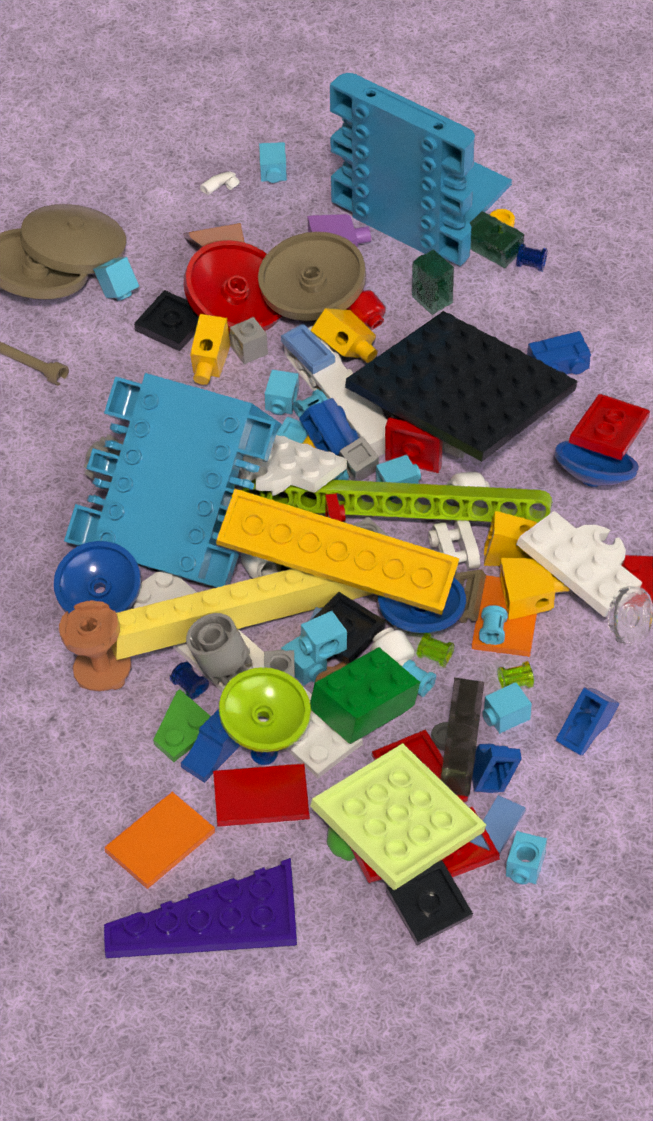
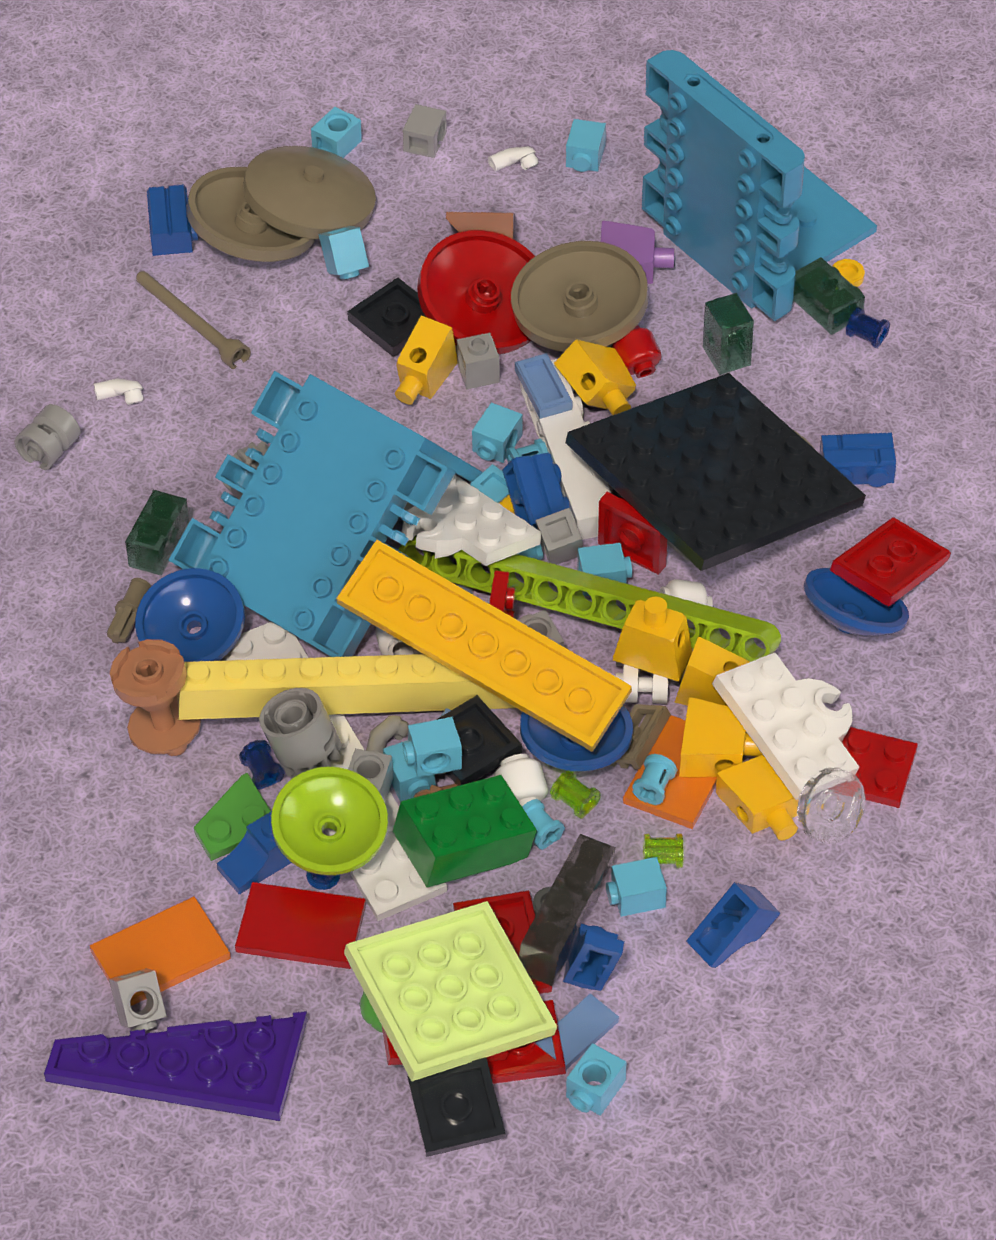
camera: 15 degrees right, 0 degrees up
(43, 586) = (126, 611): none -> dark tan axle
(46, 521) = (157, 532): none -> clear green brick
(78, 188) = (337, 132): none -> medium azure brick
(145, 174) = (424, 130): none -> light grey brick
(146, 876) = (125, 987): none -> light grey brick
(275, 633) = (385, 730): none -> light grey arm
(461, 520) = (655, 639): none -> yellow torso
(573, 621) = (758, 797): none -> yellow torso

